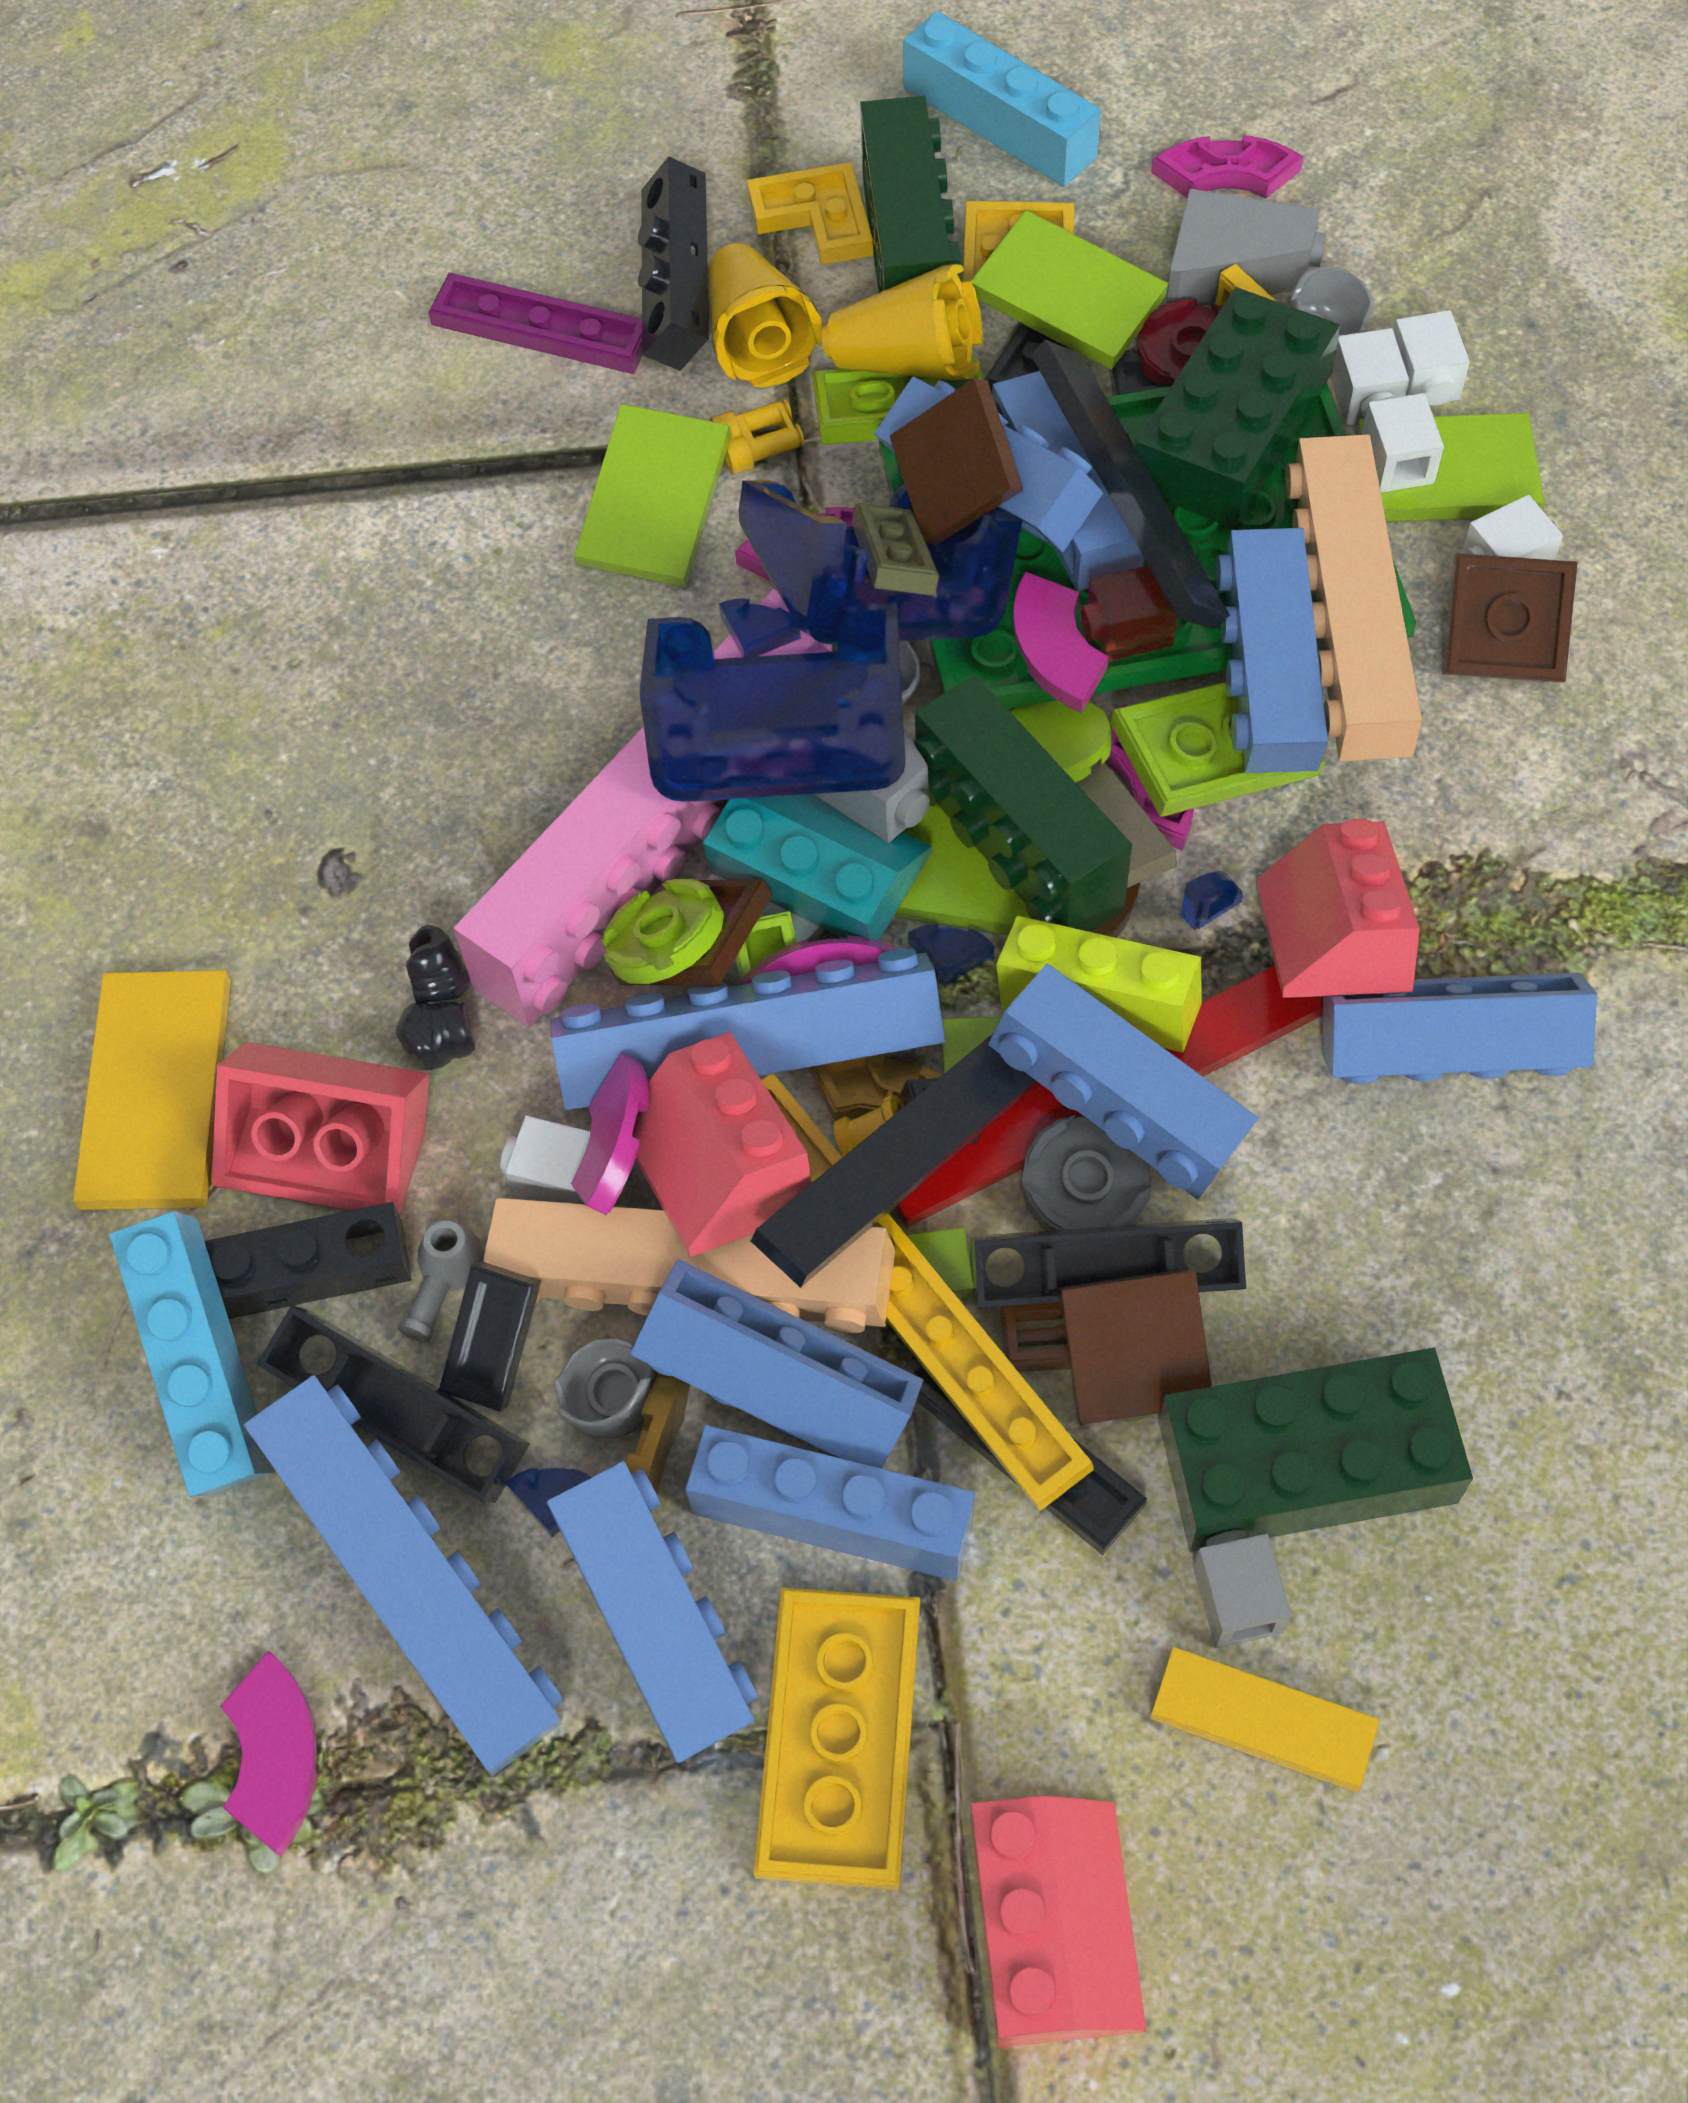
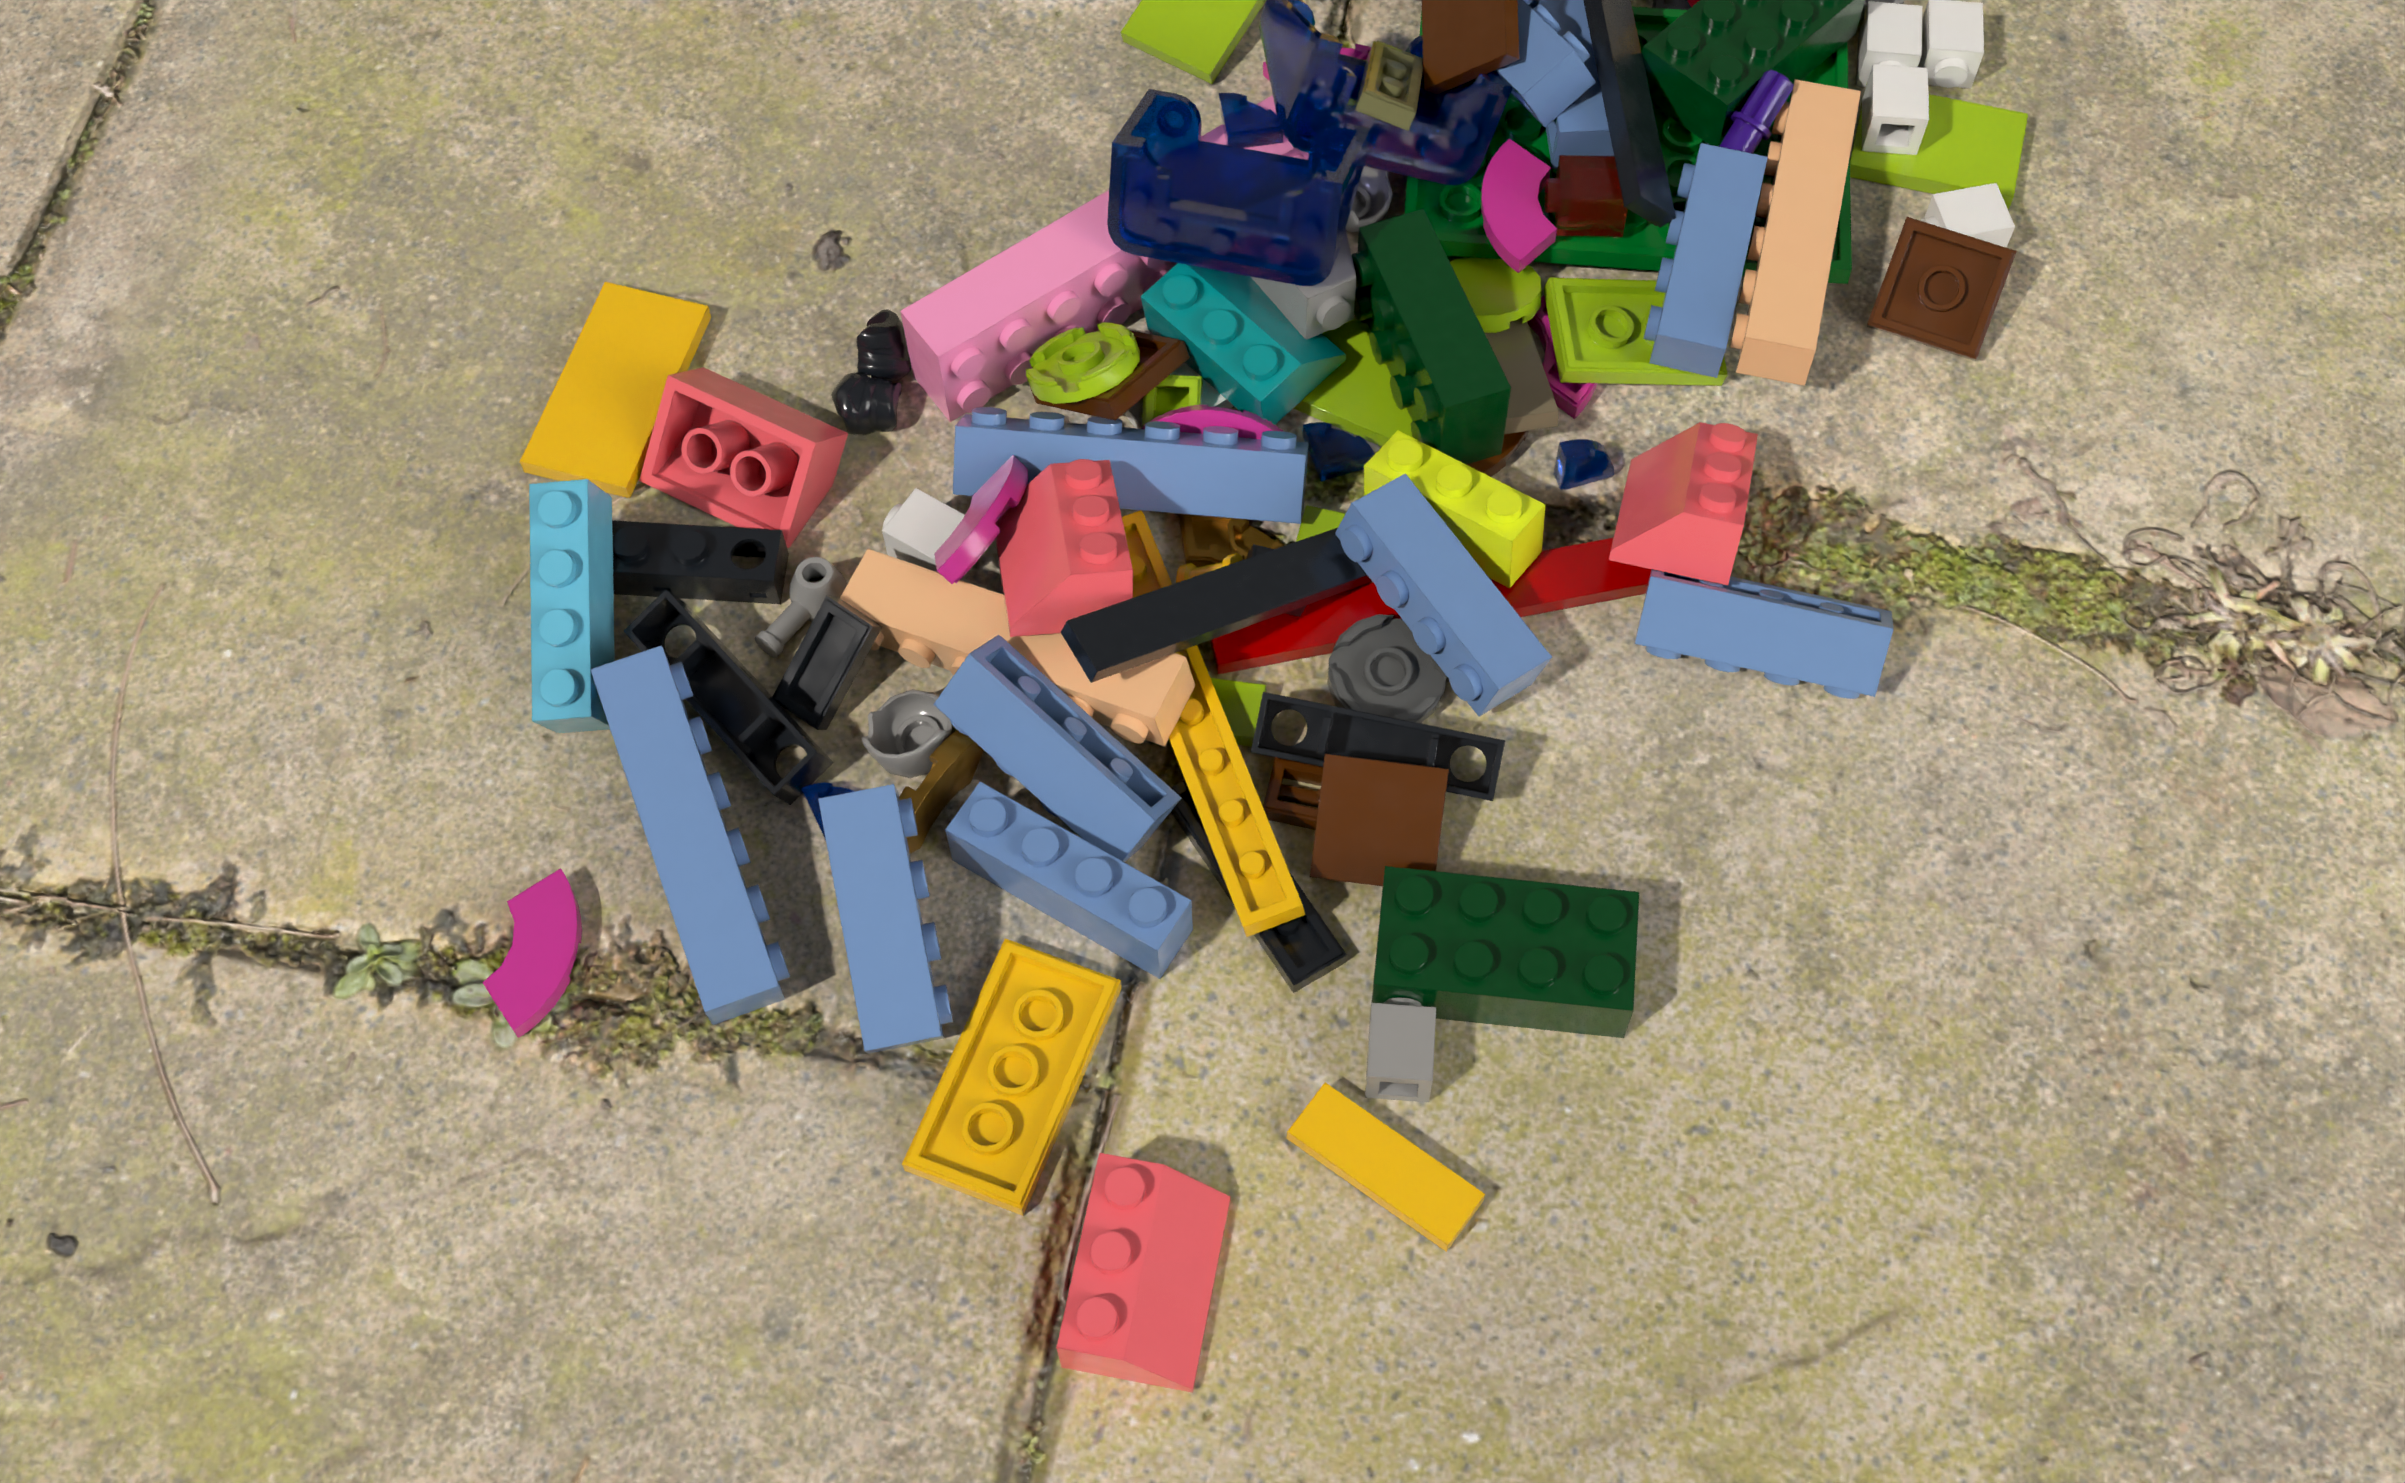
camera: 15 degrees right, 0 degrees up
(1273, 484) = (1758, 113): none -> dark purple axle

